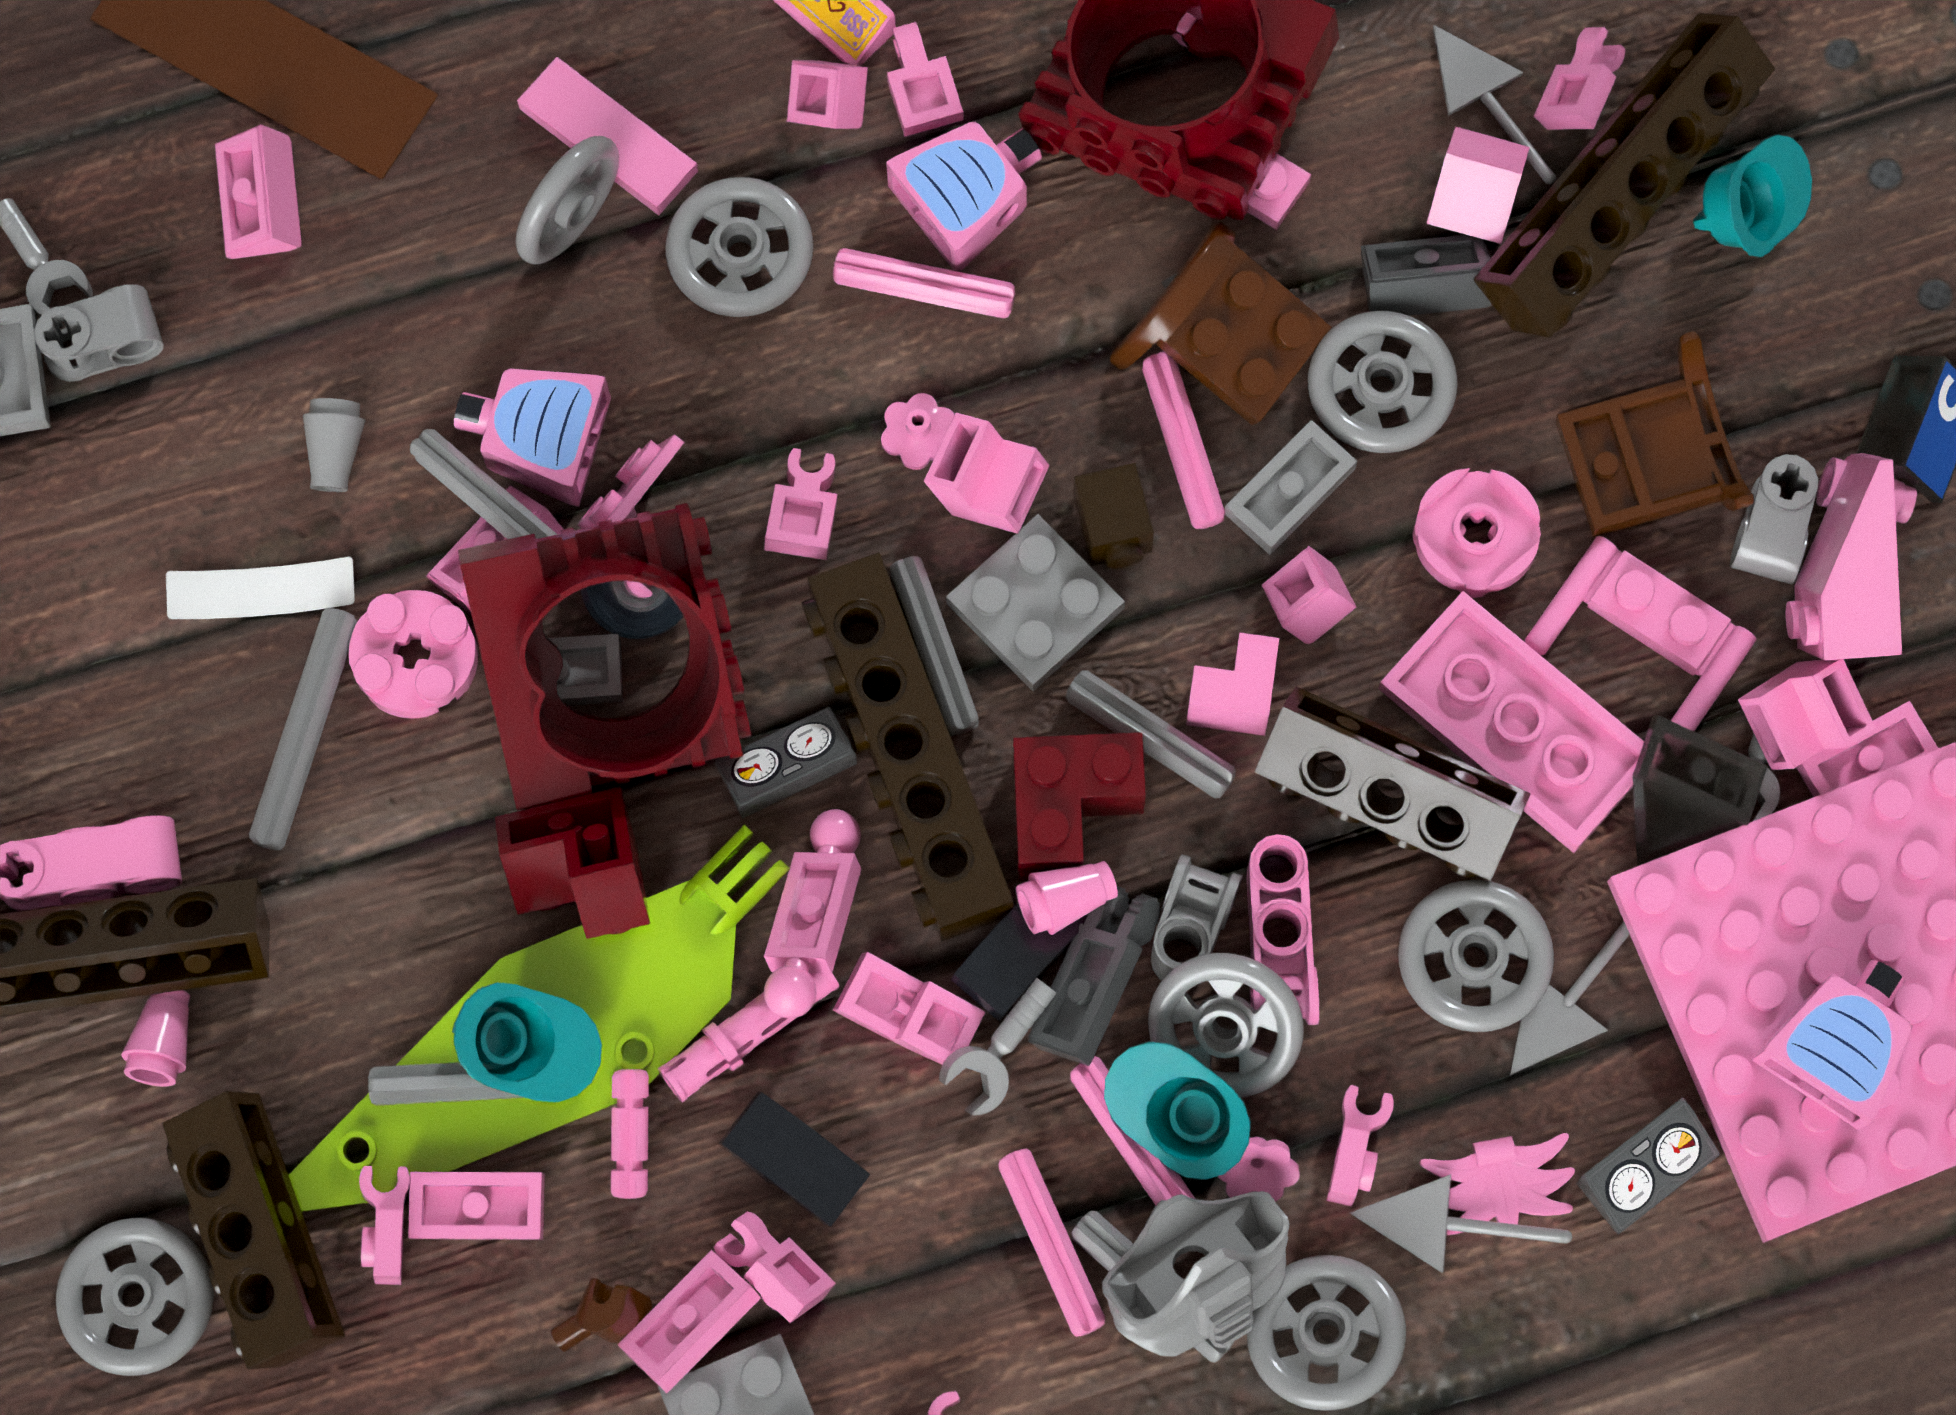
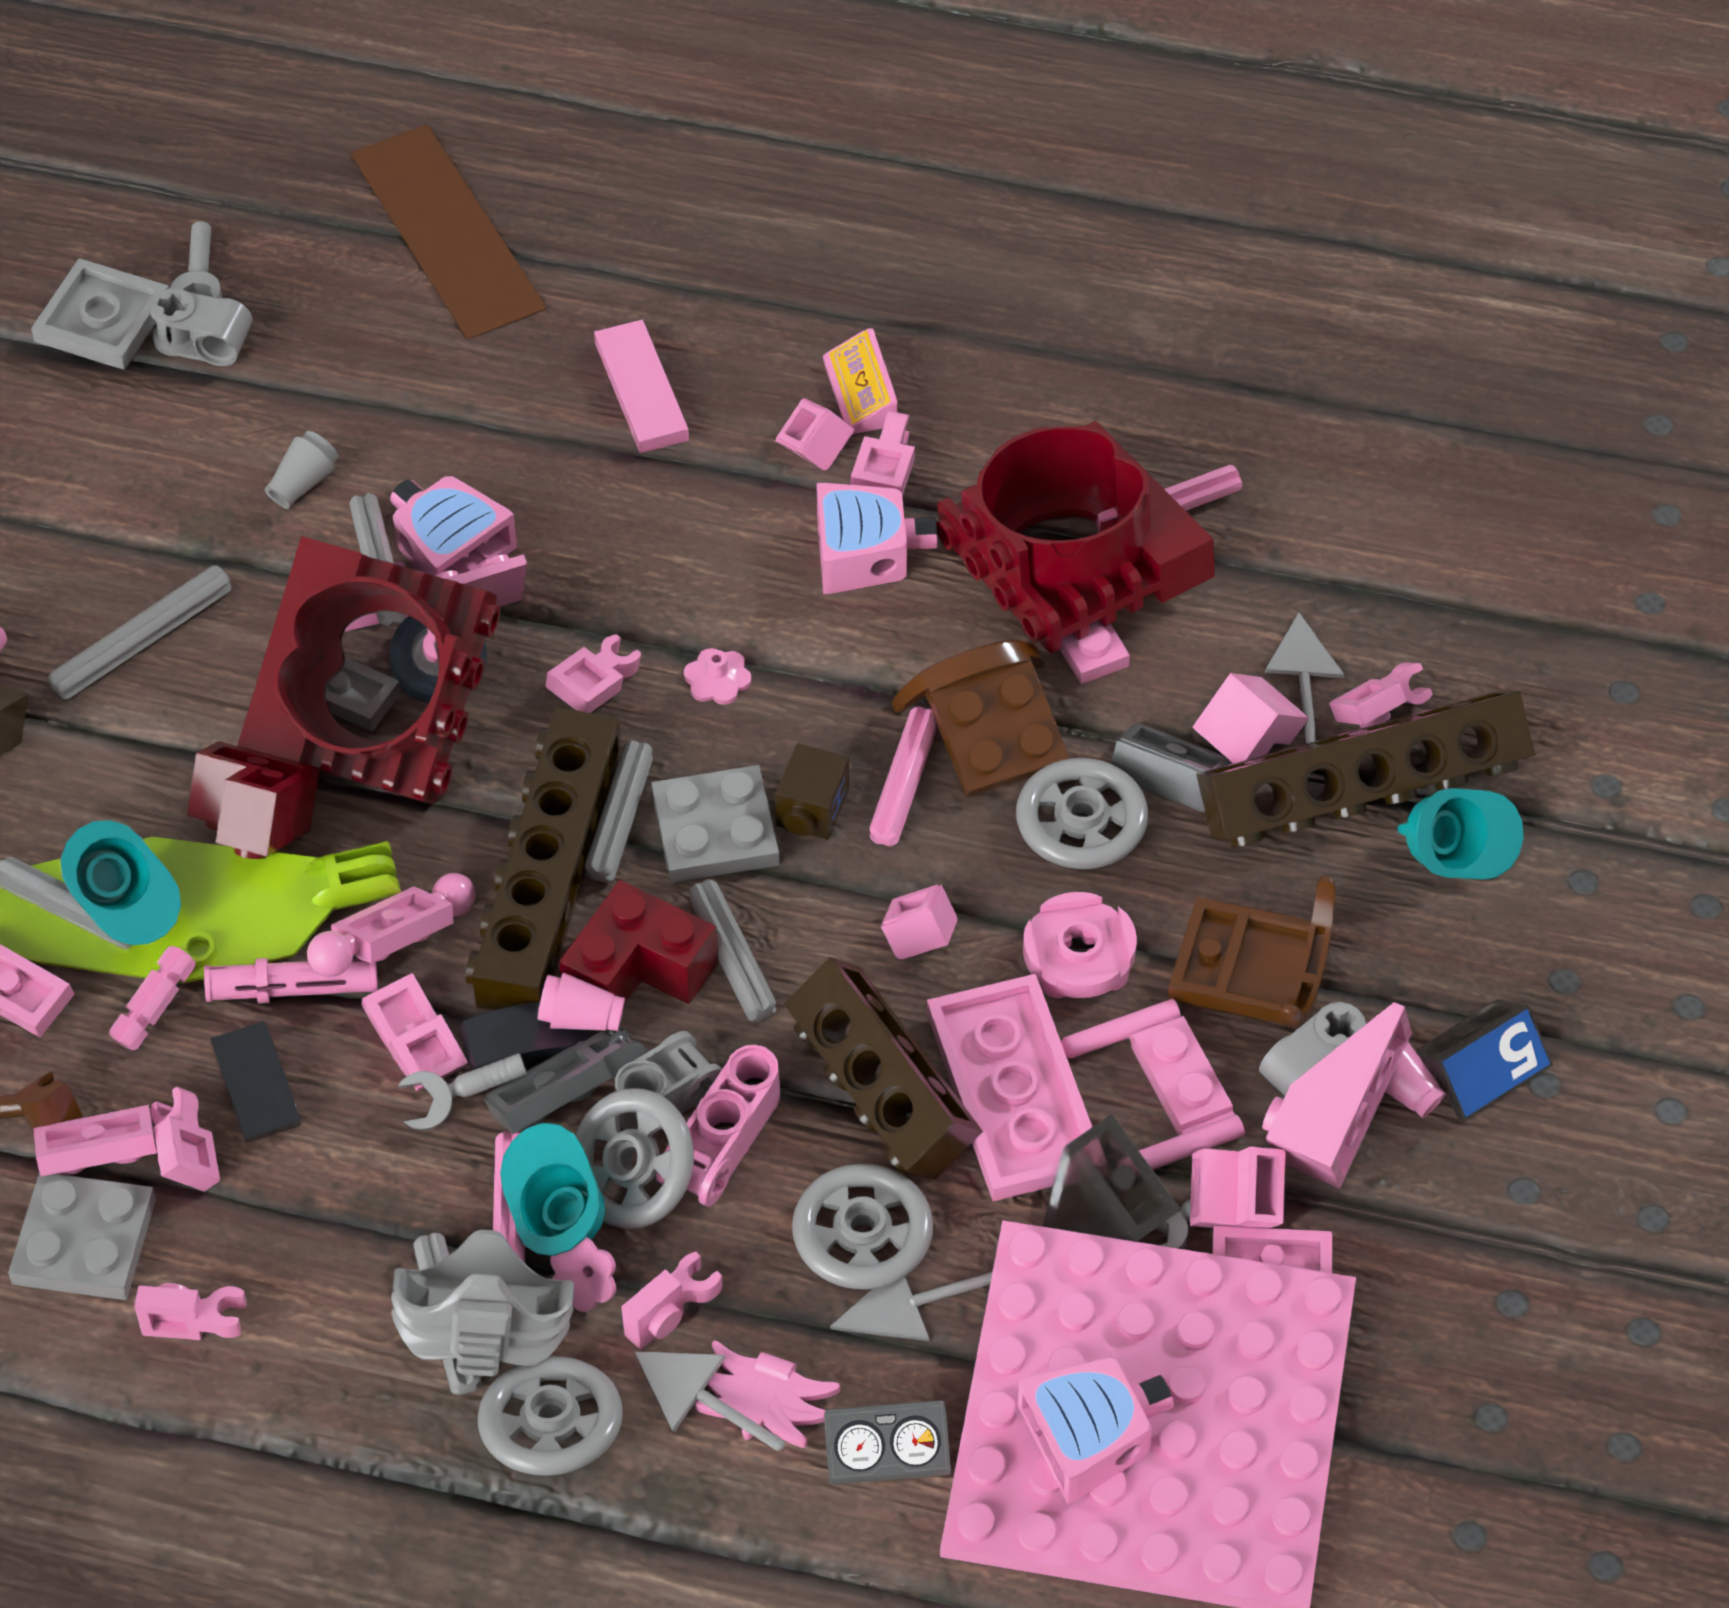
camera: 30 degrees right, 20 degrees down
(258, 193) = (376, 304): bright pink slope -> none
(260, 590) = (179, 537): white sticker -> none
(433, 682) = (225, 614): bright pink plate -> none
(567, 199) = (573, 395): light grey plate -> none
(715, 204) = (678, 495): light grey plate -> none
(787, 762) = (453, 831): slope -> none
(924, 283) = (792, 583): bright pink axle -> none
(985, 475) = (735, 714): bright pink piece -> none
(1051, 1242) = (395, 1238): bright pink axle -> none
(1239, 697) = (801, 945): bright pink piece -> none
(1290, 487) = (959, 844): light grey plate -> none

